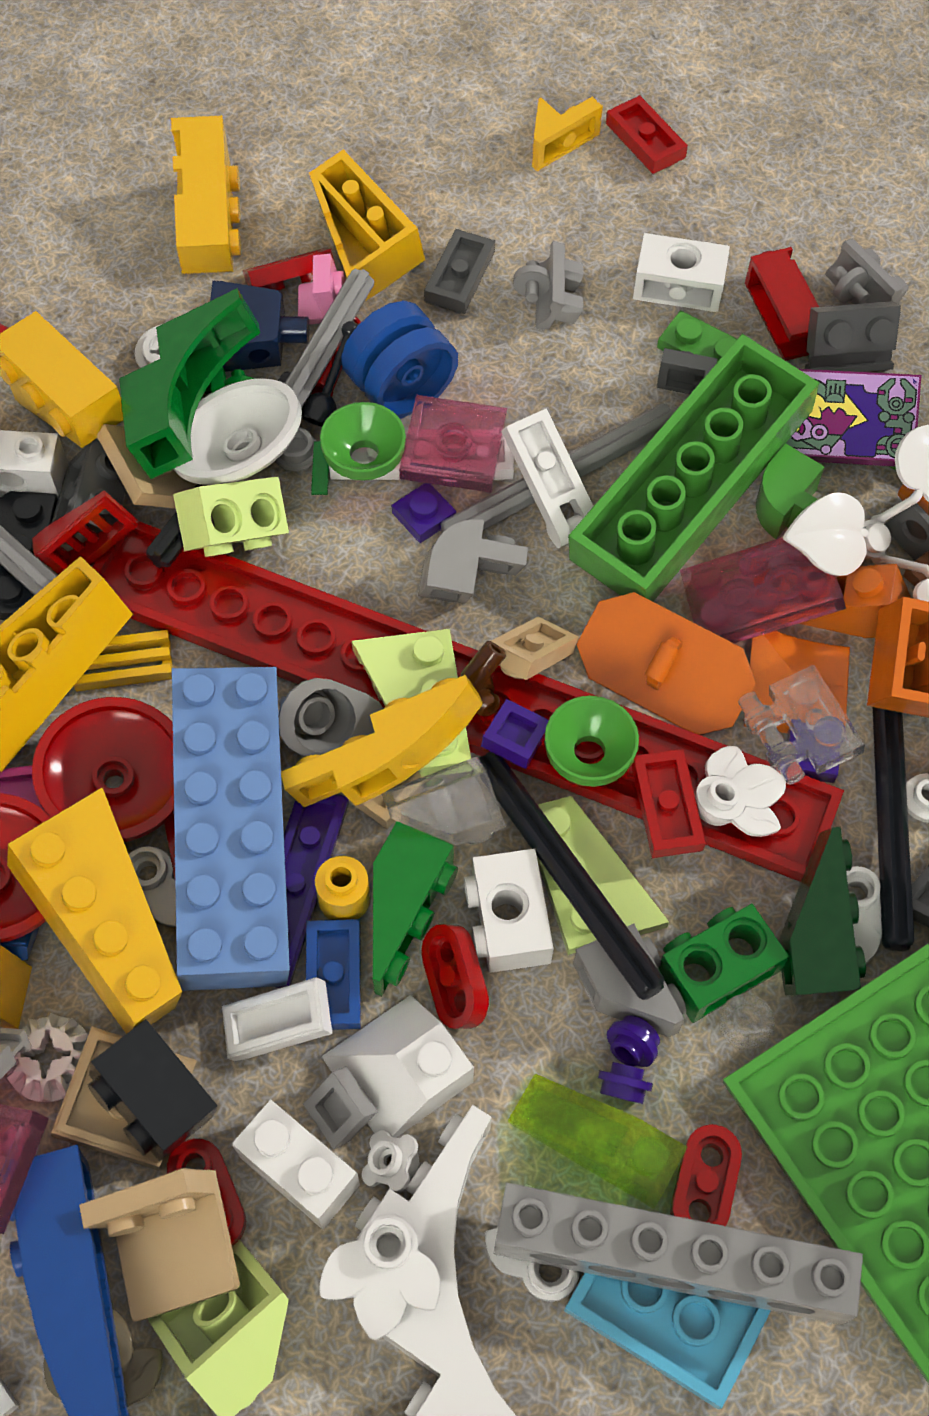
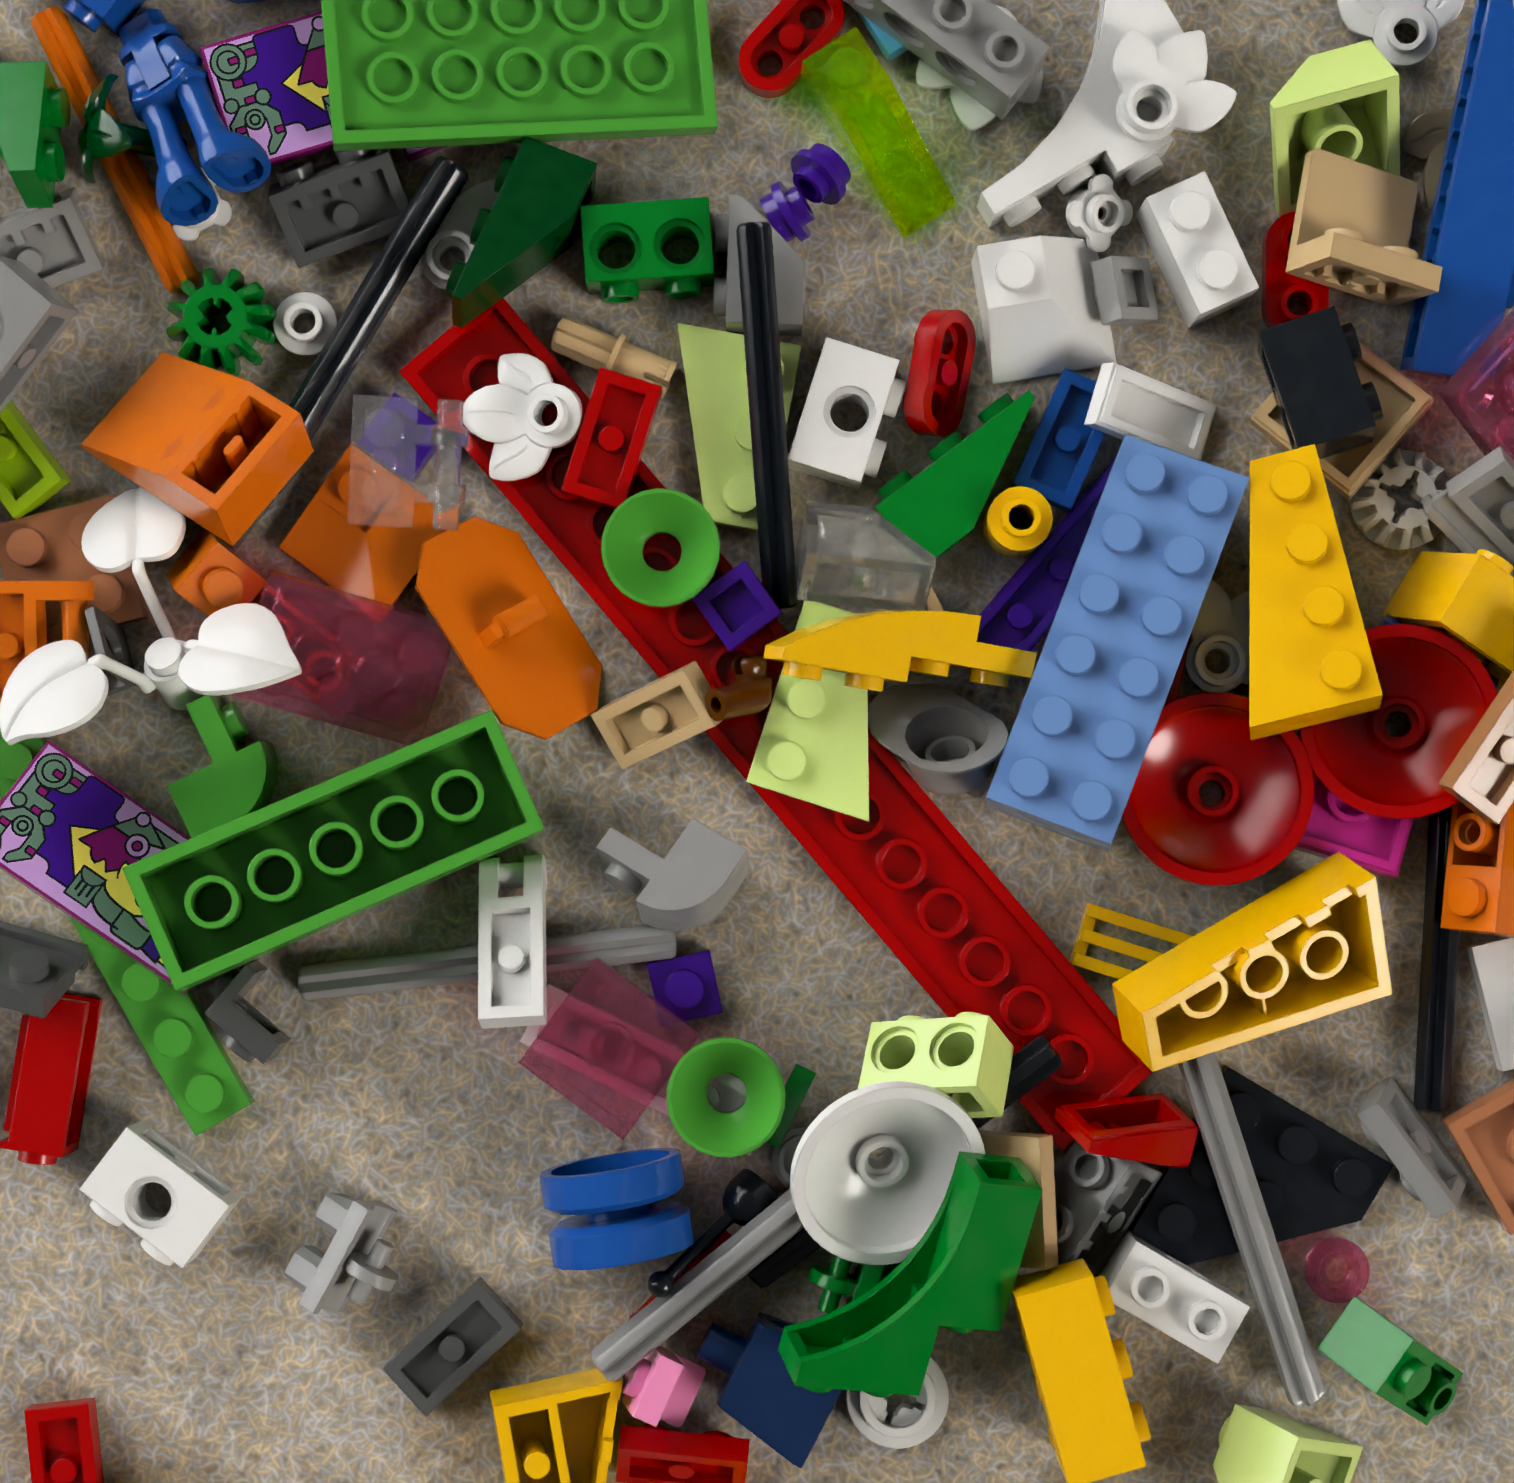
camera: 150 degrees left, 25 degrees up
(698, 877) = (606, 351): none -> tan axle

